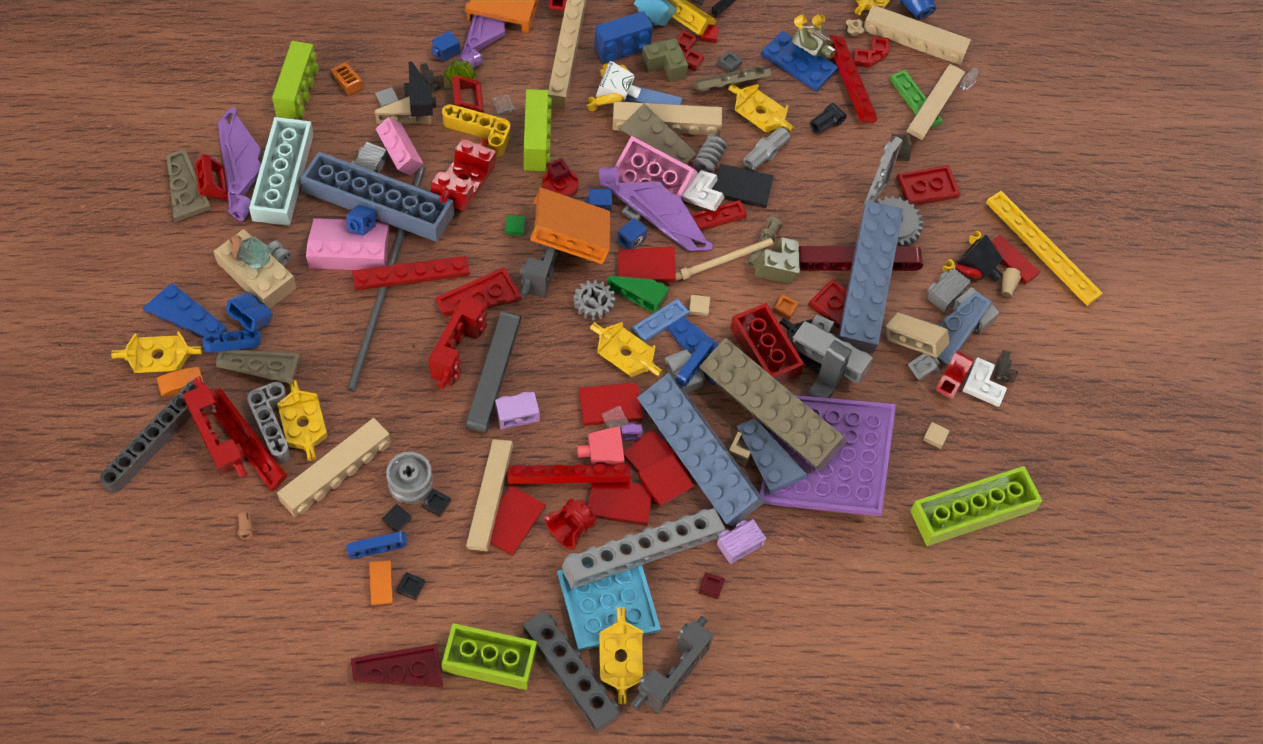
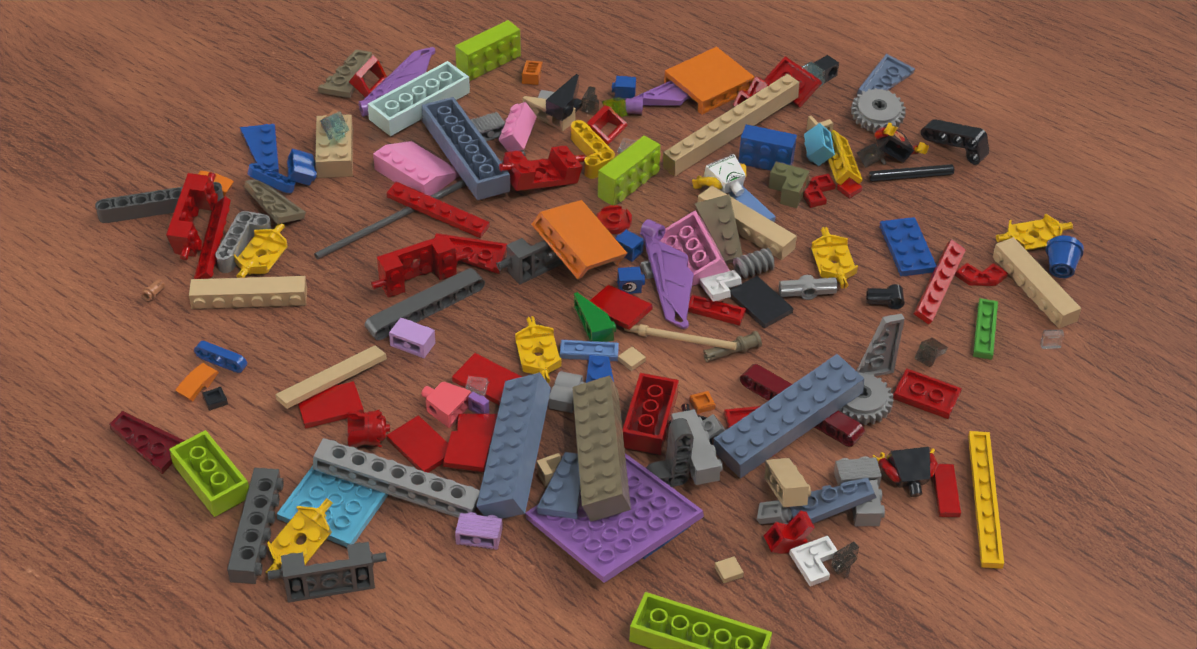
camera: 45 degrees right, 15 degrees down
(141, 350) = (209, 152): yellow plate -> none
(281, 255) = (361, 146): light grey wheel -> none
(358, 218) = (435, 154): blue brick -> none
(397, 518) = (254, 351): black tile -> none
(409, 477) = (288, 329): light grey wheel -> none
(436, 502) = (292, 360): black tile -> none
(558, 169) = (620, 207): dark red tile -> none
(569, 474) = (403, 401): red plate -> none
(593, 305) = (551, 304): light grey gear -> none
(692, 365) = (555, 385): blue beam -> none
(711, 585) = (424, 546): dark red tile -> none
(729, 61) = (845, 215): dark grey tile -> none
(731, 77) = (838, 227): dark tan wing -> none
(780, 263) = (725, 367): olive brick -> none
(813, 38) = (929, 232): olive torso -> none
(854, 27) = (984, 249): tan plate -> none
(935, 102) = (997, 336): tan tile -> none
(1010, 280) = (925, 501): tan cone -> none

